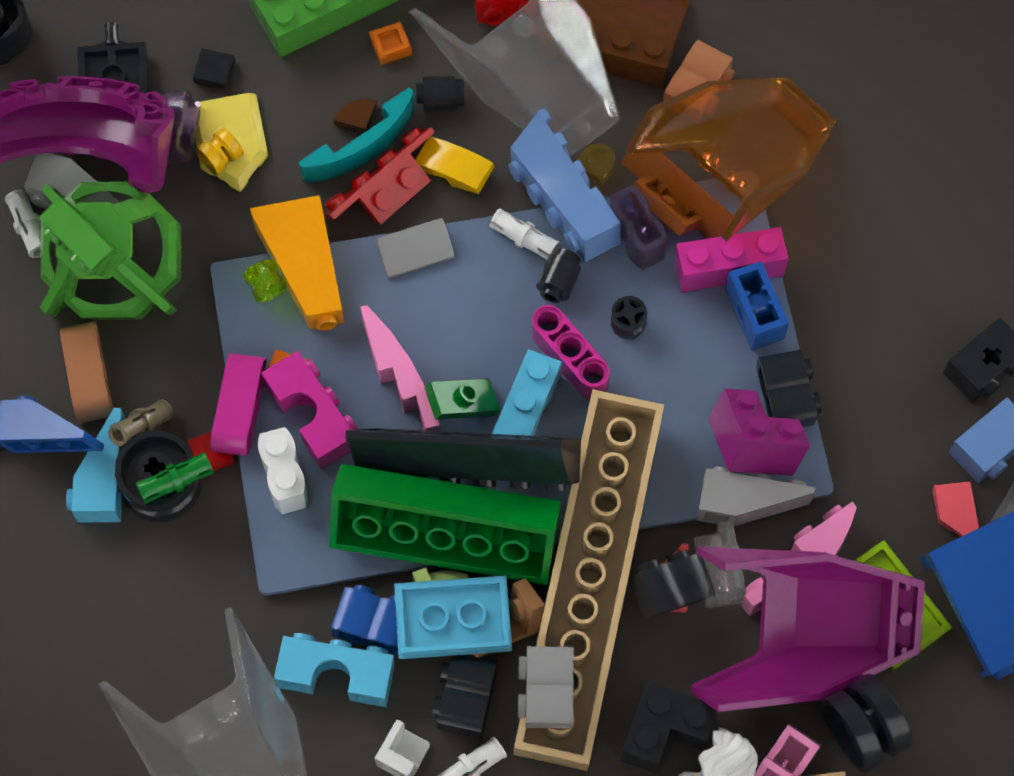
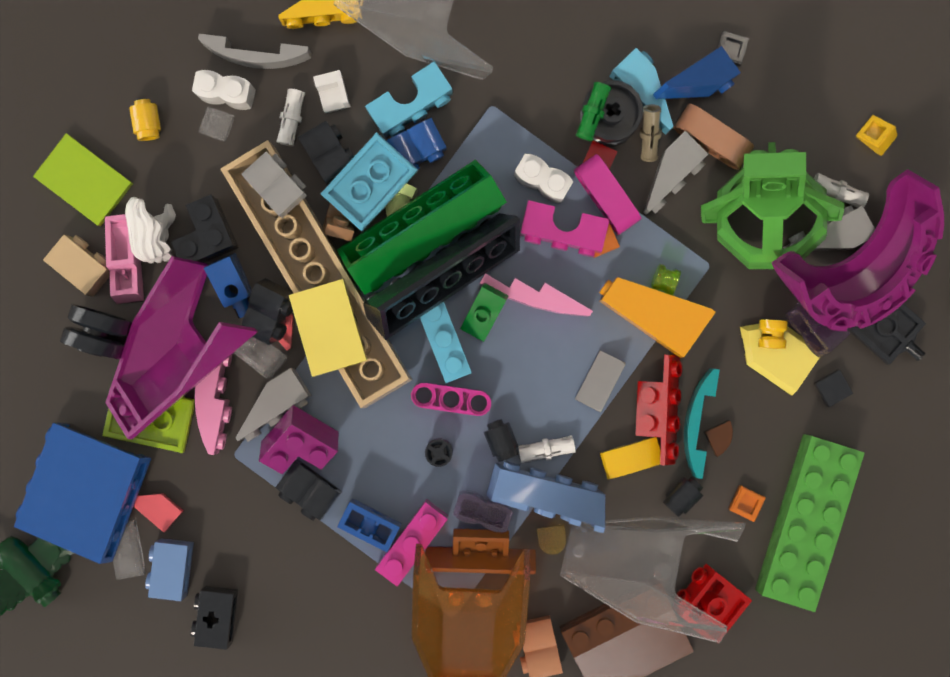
camera: 135 degrees right, 20 degrees up
(148, 377) = (674, 165): none -> light grey slope
(625, 503) = (328, 327): none -> light yellow tile
(684, 650) = (230, 272): none -> blue torso

